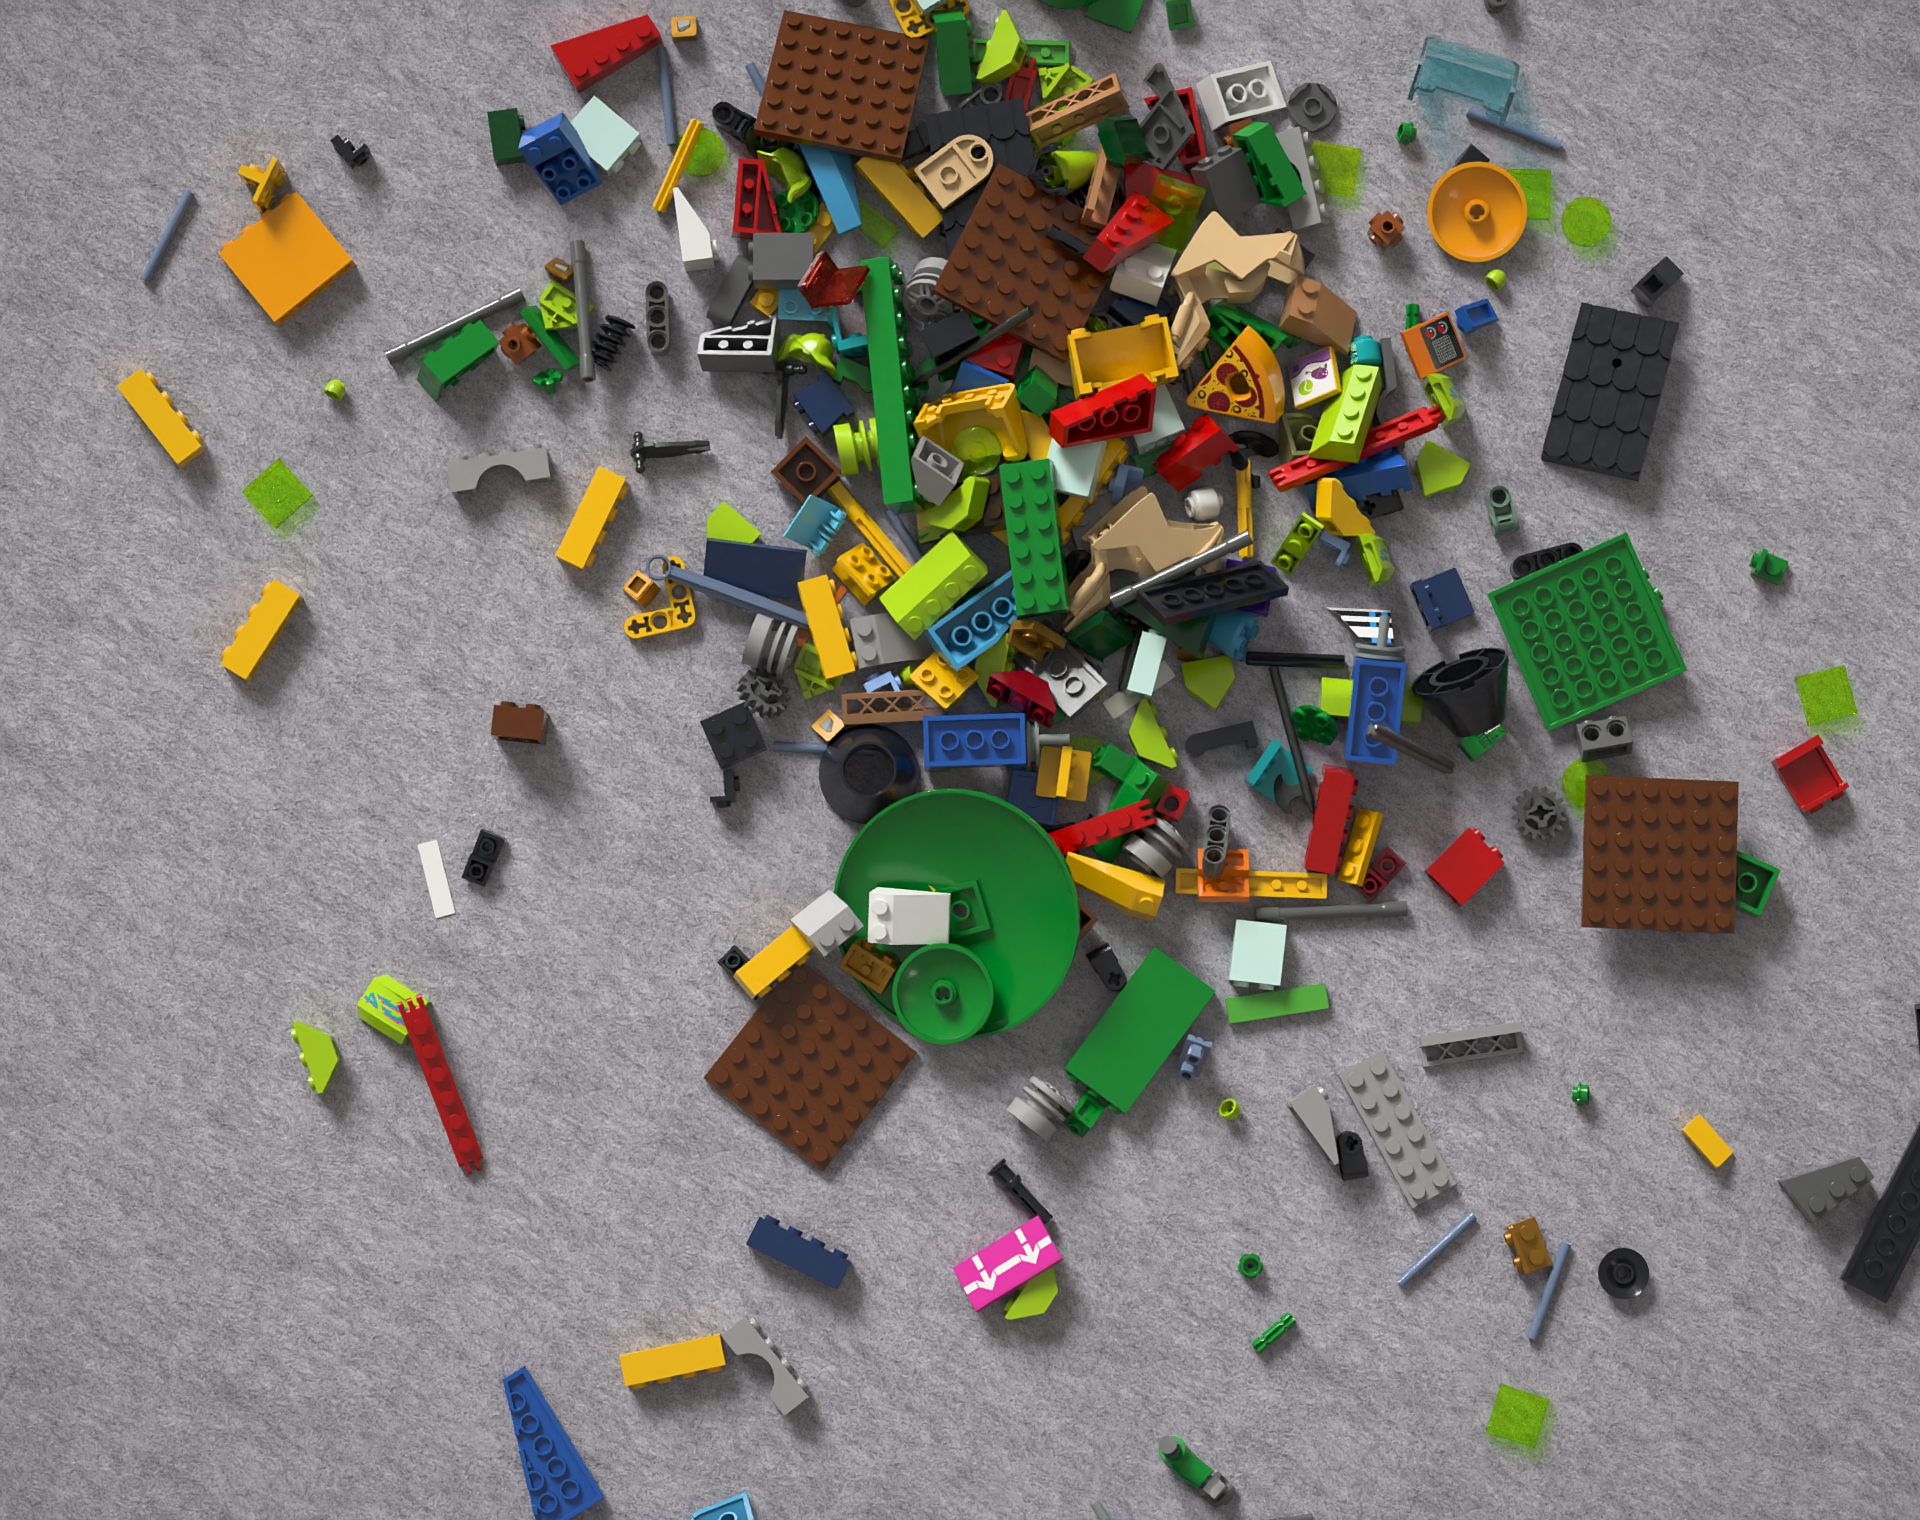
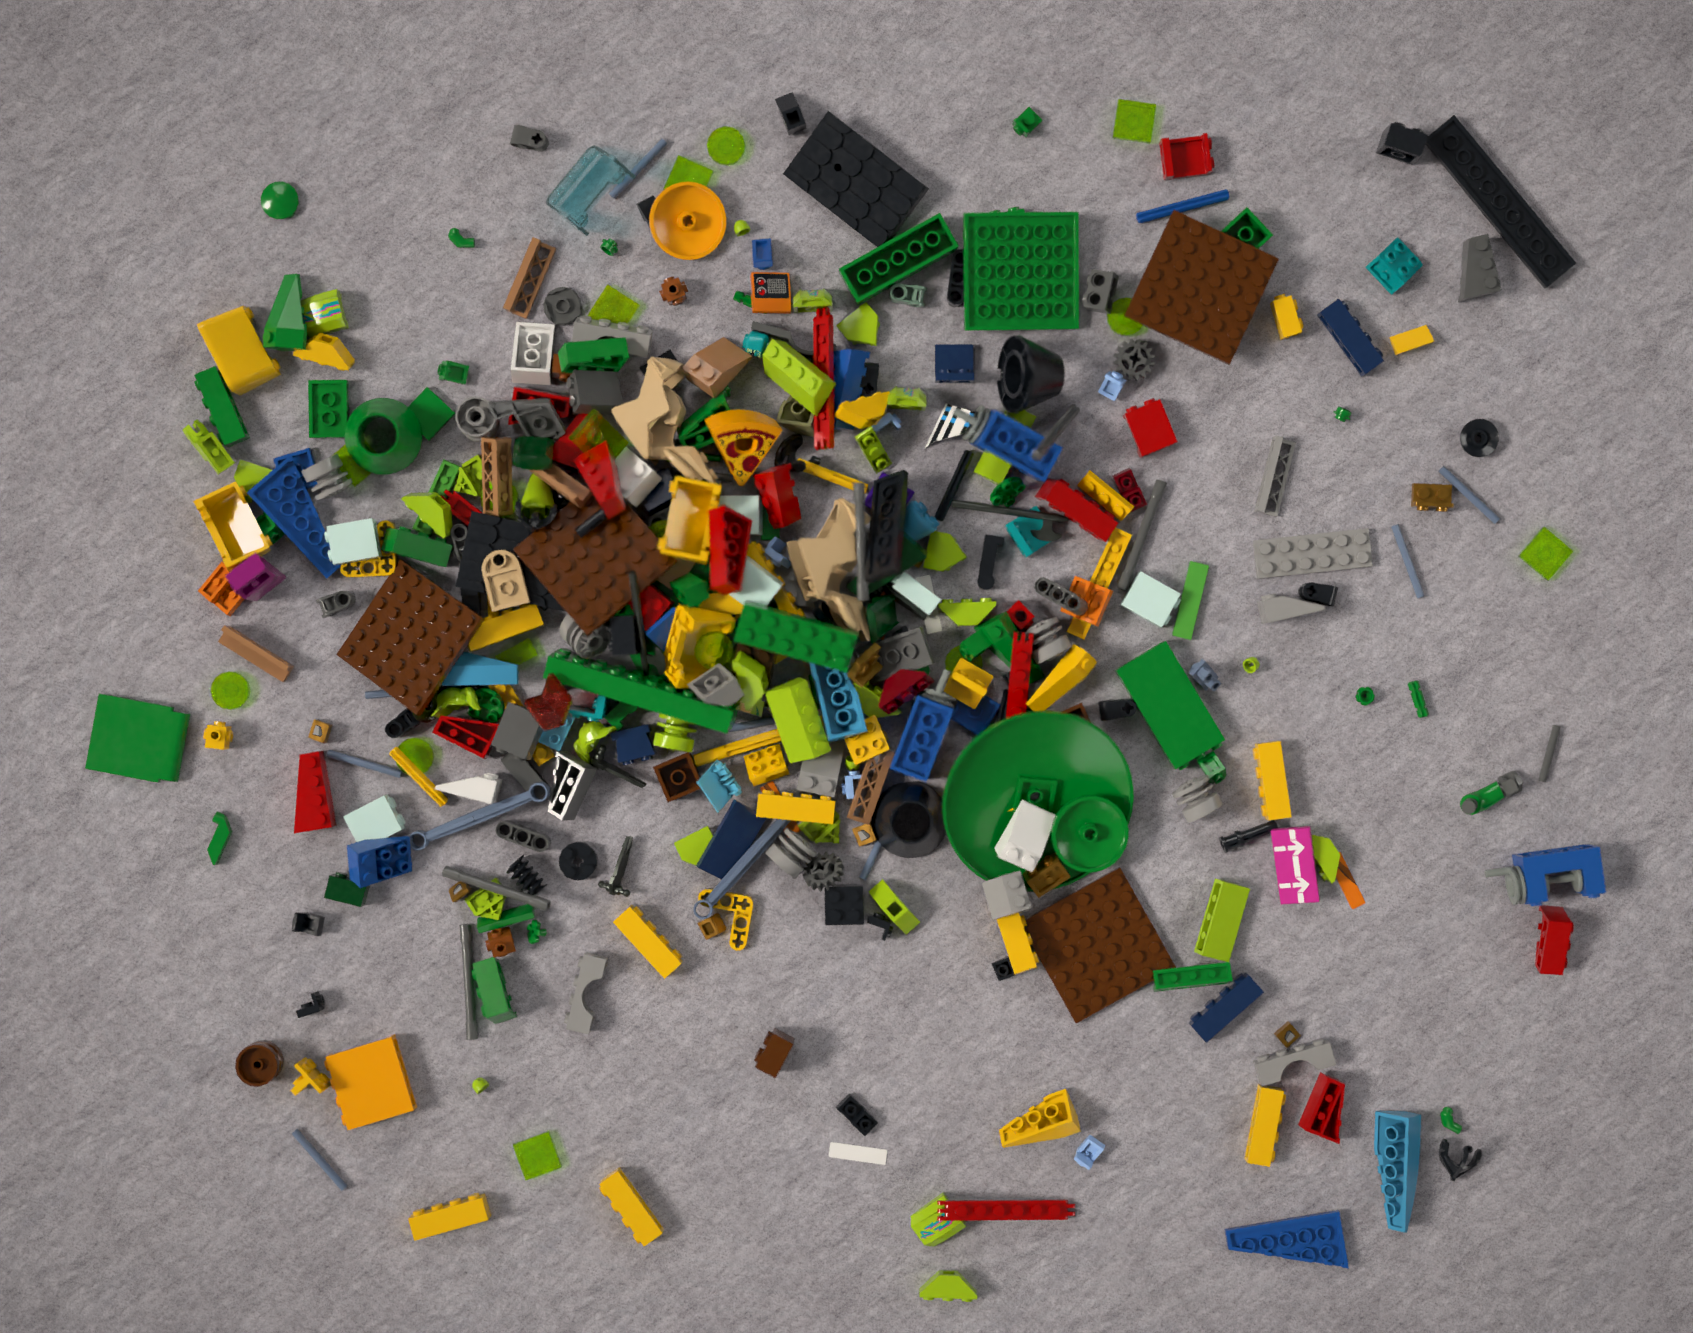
camera: 75 degrees left, 5 degrees up
(261, 103) = (249, 1069): none -> reddish brown wheel
(447, 107) = (308, 923): none -> black bracket
(552, 1158) = (1088, 1152): none -> light blue bracket
(570, 1093) = (1047, 1121): none -> yellow wedge
(661, 256) = (479, 816): none -> sand blue piece
(667, 400) = (584, 852): none -> black plate
(723, 1425) = (1323, 1108): none -> red wedge
(754, 798) = (894, 907): none -> lime slope
(795, 1343) = (1287, 1034): none -> pearl gold slope
(818, 1194) = (1192, 976): none -> green fence
(903, 1203) = (1221, 920): none -> lime brick
(1012, 1341) = (1348, 885): none -> orange sticker
(1099, 1194) = (1272, 780): none -> yellow brick
(1134, 46) = (467, 413): none -> light grey wheel
(1203, 503) = (816, 504): white head -> none
(1314, 377) = (759, 387): tile -> none
(1329, 45) = (522, 276): none -> medium nougat fence
(1477, 745) = (1070, 385): green leg -> none
(1497, 799) = (1112, 385): none -> light blue bracket
(1538, 480) = (898, 259): none -> green brick
(1669, 975) = (1286, 317): none -> yellow brick
(1678, 1064) = (1350, 337): none -> dark blue brick
(1749, 796) = (1182, 206): none -> blue axle
(1788, 1082) = (1394, 266): none -> teal bracket

